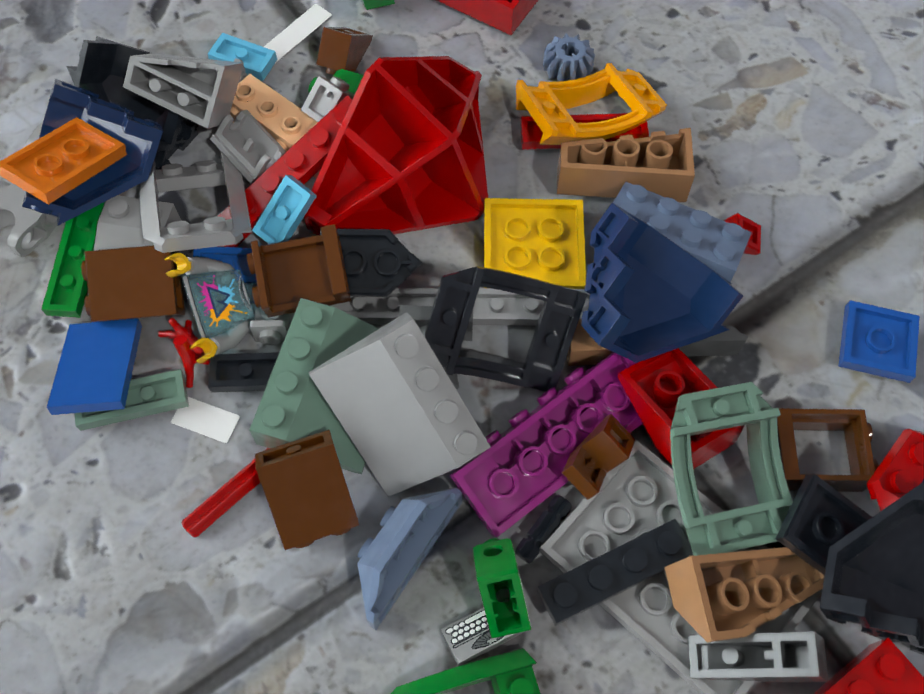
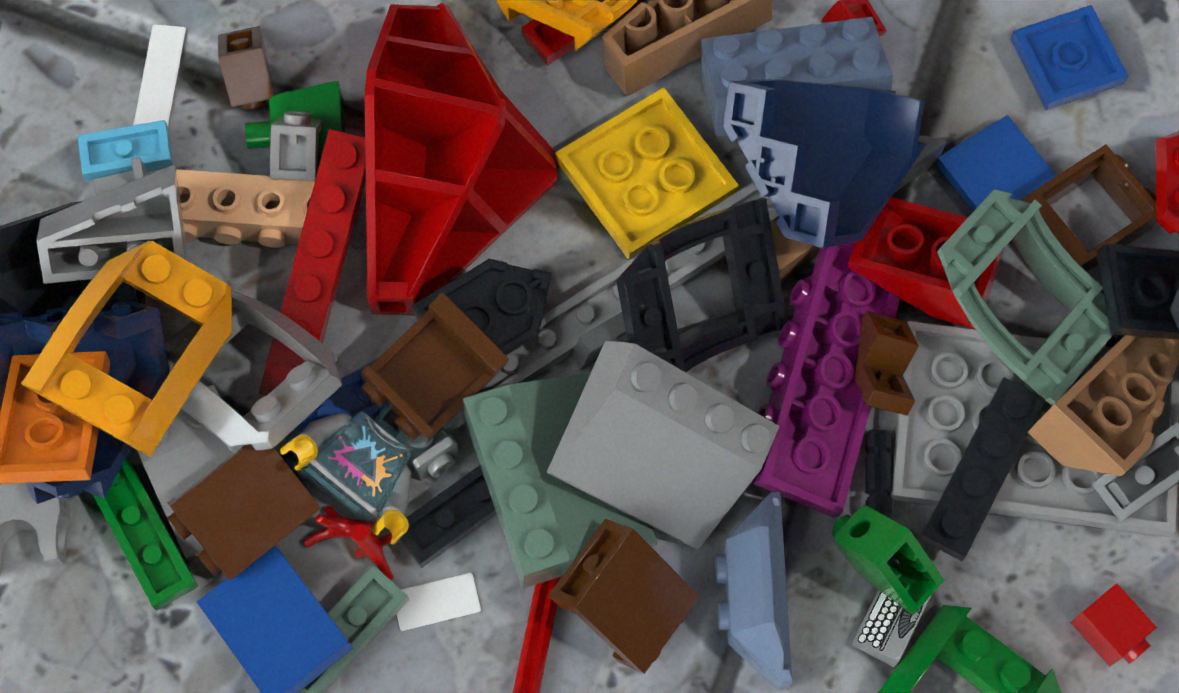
camera: 35 degrees left, 5 degrees up
(91, 170) = (108, 401): none -> light orange wedge
(247, 145) = (241, 257): light grey hinge -> none
(284, 211) = (351, 312): medium azure plate -> none
(779, 375) = (995, 160): none -> blue tile

